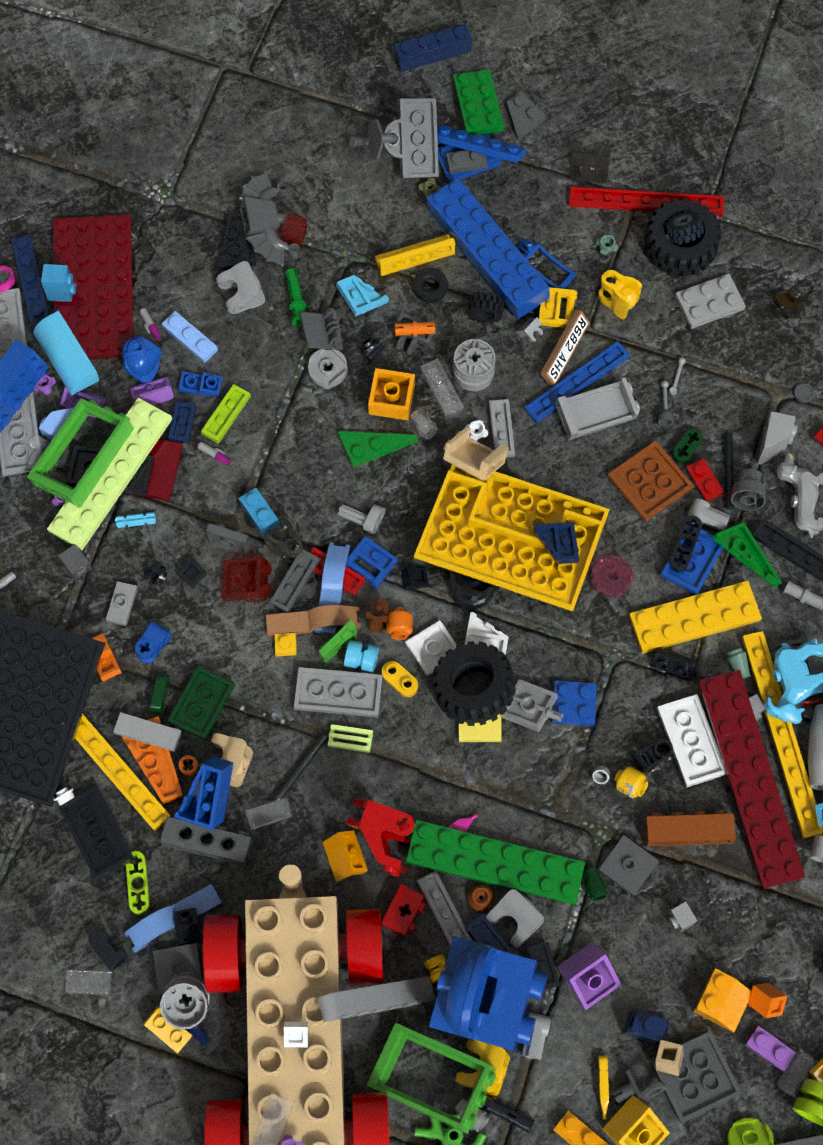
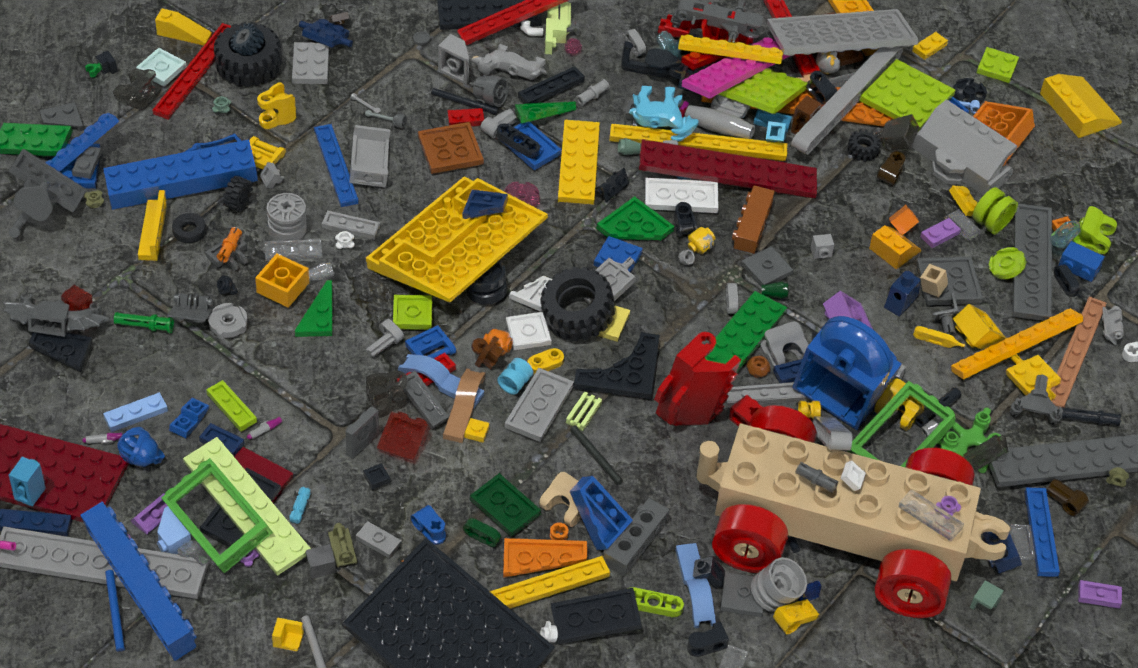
camera: 75 degrees left, 20 degrees down
(65, 353) = (123, 496): medium azure brick -> none
(101, 575) = (342, 545): none -> olive hinge
(147, 732) = (517, 548): light grey tile -> none
(153, 391) = (174, 453): medium lavender slope -> none
(156, 573) = (364, 502): black plate -> none
(249, 288) = (111, 348): light grey piece -> none
(258, 511) = (343, 407): dark azure brick -> none
(269, 813) = (628, 485): clear tile -> none
(277, 996) = (816, 477): none -> dark grey pin
(338, 642) = (495, 386): bright green wing -> none
(344, 855) = (685, 445): light orange panel -> none
(360, 295) = (169, 277): medium azure wing -> none
(405, 528) = (413, 311): none -> lime plate
(412, 769) = (627, 377): none -> black plate
(414, 578) = (458, 324): black slope -> none
(474, 456) = (373, 243): tan panel -> none
(562, 840) = (732, 298): none -> light grey beam
(565, 347) = (302, 159): tile -> none
(610, 118) = (105, 63): none -> black piece
(628, 704) = (636, 222): none -> green plate
(631, 168) = (164, 64): none -> light aqua plate
(683, 443) = (433, 115): dark green beam -> none
(694, 162) = (179, 27): none -> yellow slope
(756, 297) = (326, 33): none -> dark blue plate

